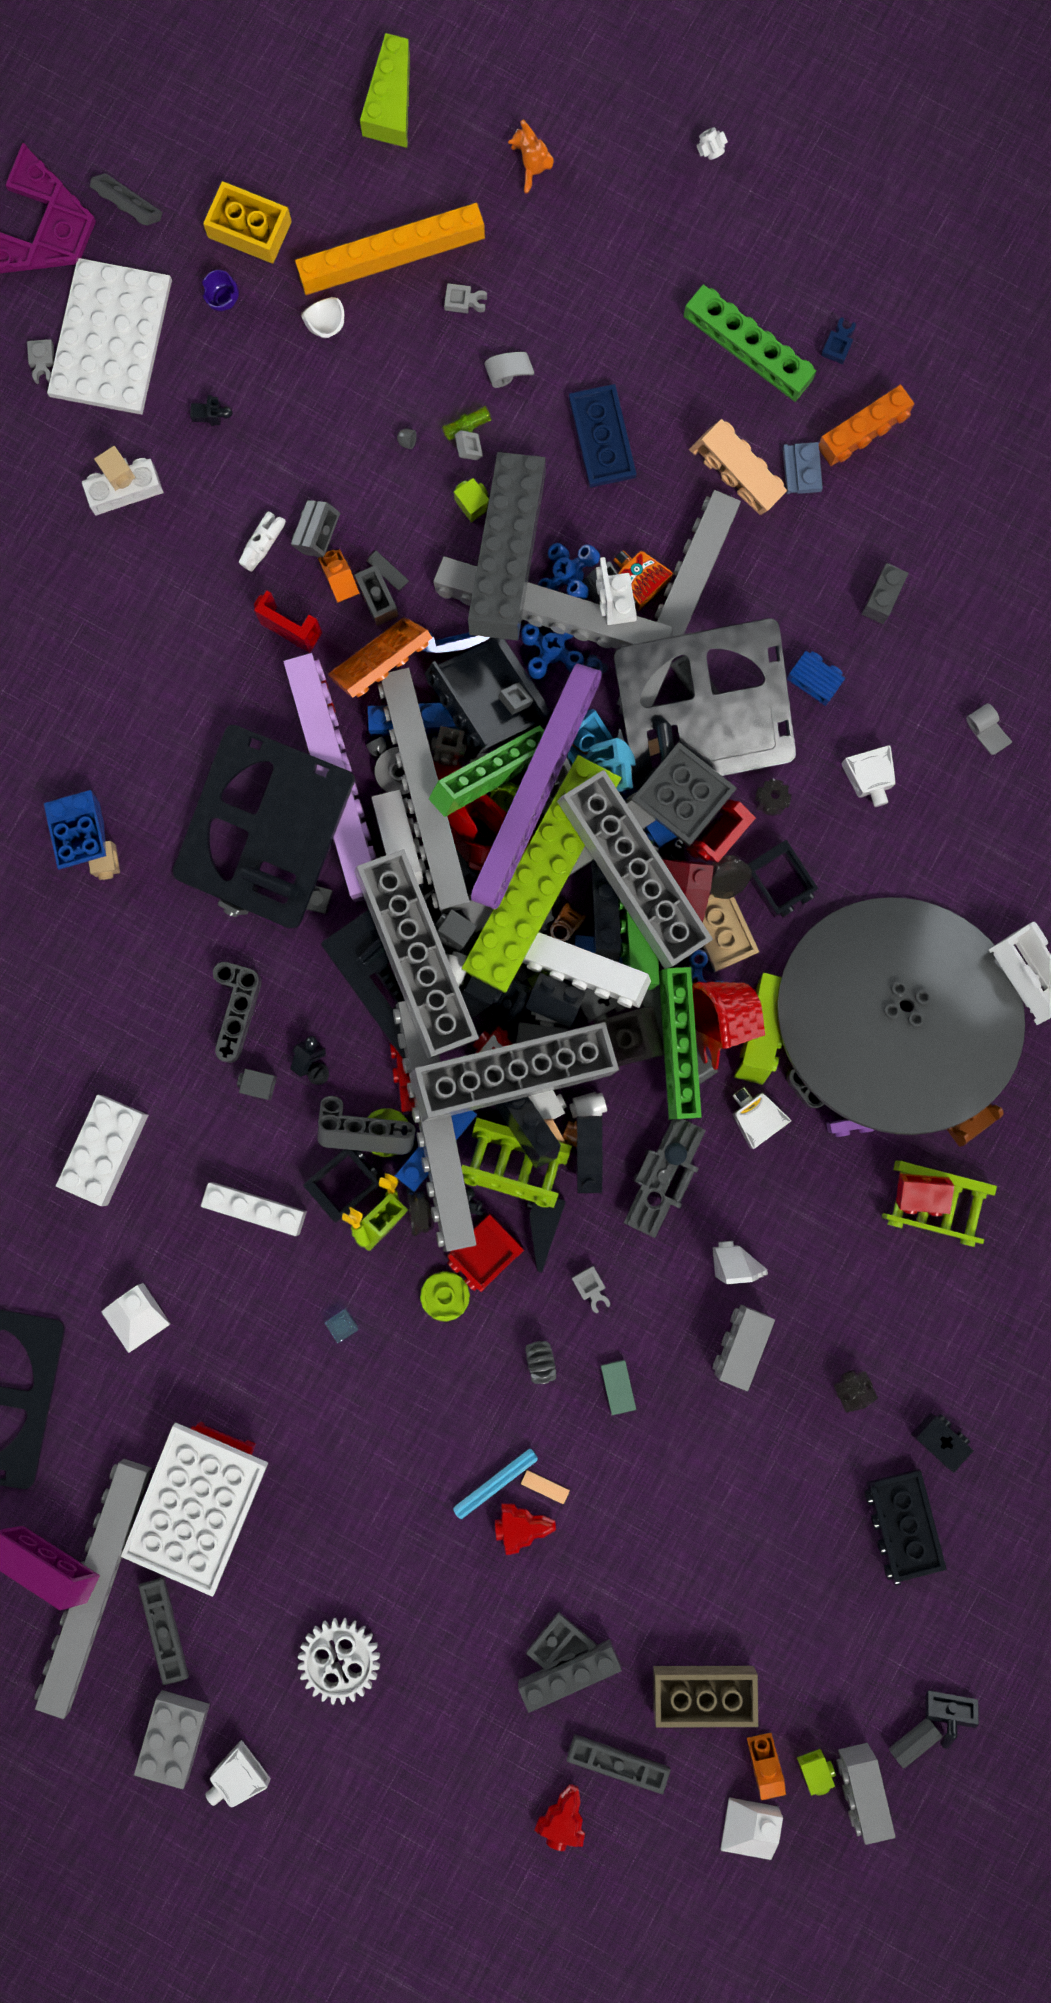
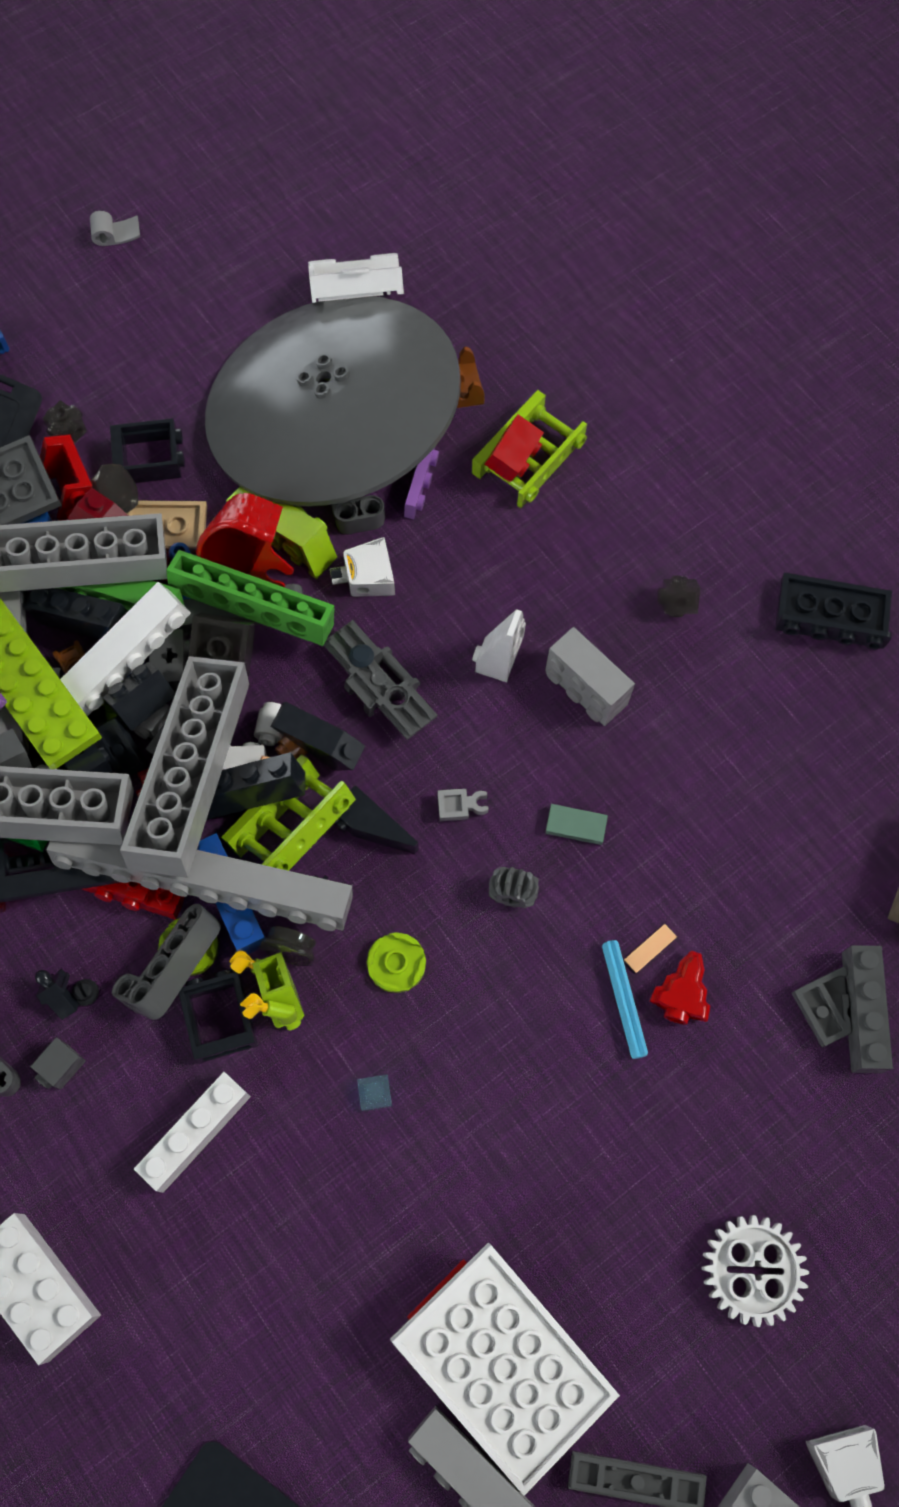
camera: 65 degrees left, 15 degrees down
(135, 1317) = (247, 1341): white slope -> none
(489, 1257) = (375, 898): red panel -> none
(871, 774) = (94, 335): white torso -> none
(954, 1452) = (764, 542): black brick -> none

